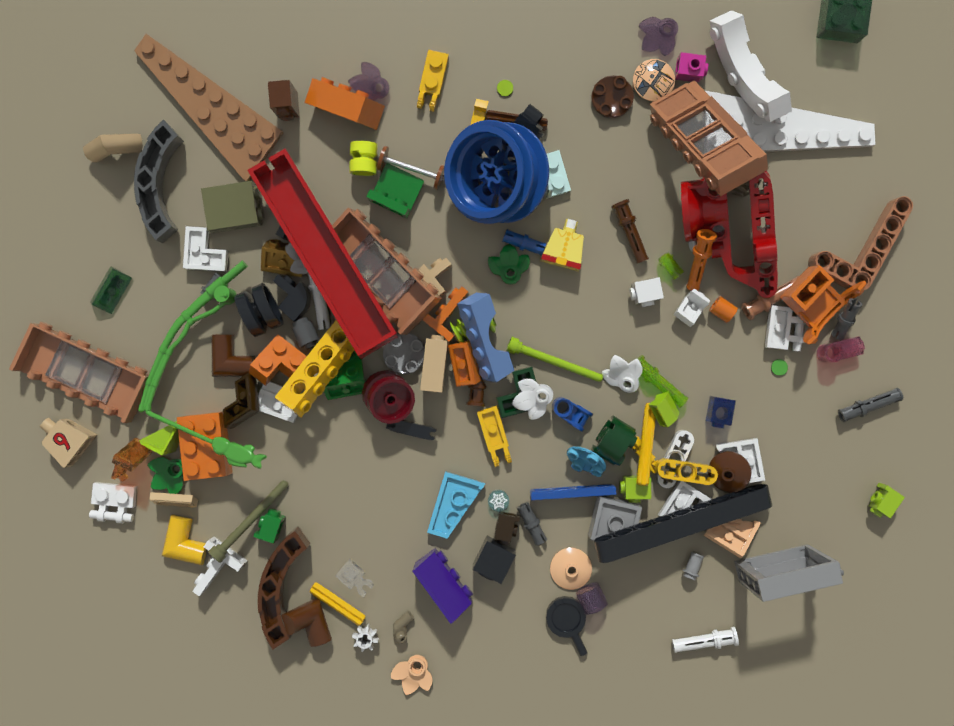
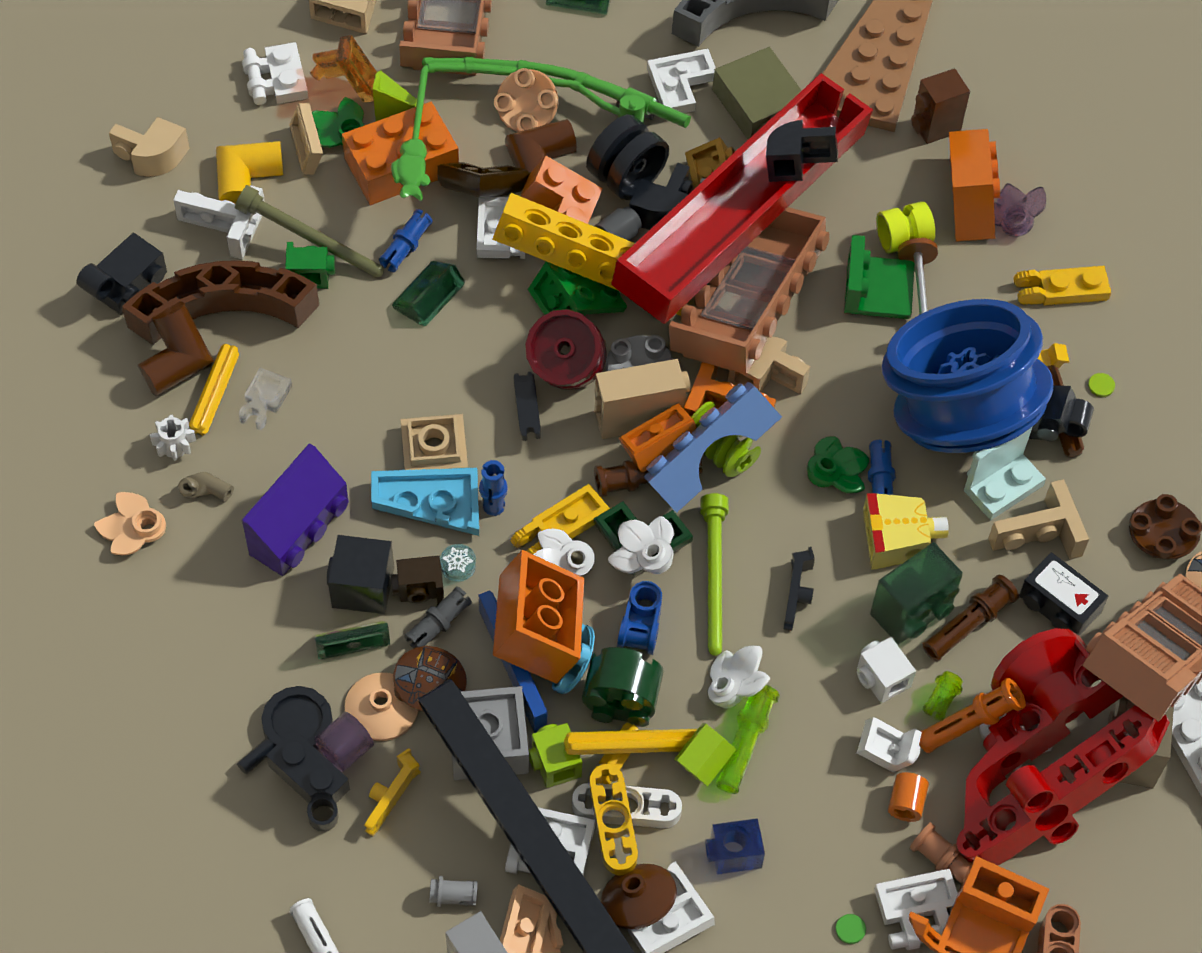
camera: 65 degrees right, 30 degrees down
(152, 592) = (153, 152): none -> tan brick
(190, 355) = (526, 100): none -> light nougat dish
(241, 637) = (123, 272): none -> black hinge
(271, 462) = (405, 240): none -> blue pin
(304, 214) = (793, 146): none -> black brick
(310, 458) = (429, 292): none -> clear green slope
(416, 477) = (448, 455): none -> tan piece
(467, 474) = (493, 487): none -> blue pin
(520, 448) = (558, 549): none -> white plate
(525, 573) = (352, 640): none -> clear green slope
(561, 473) = (539, 617): none -> orange brick
(568, 540) = (424, 670): none -> reddish brown dish
(581, 320) = (801, 562): none -> black piece
(589, 152) = (1045, 525): none -> tan bracket
(608, 624) = (309, 776): none -> black hinge
(614, 256) = (916, 594): none -> clear green brick
(627, 582) = (389, 796): none -> yellow piece
(637, 174) = (1062, 595): none -> brick

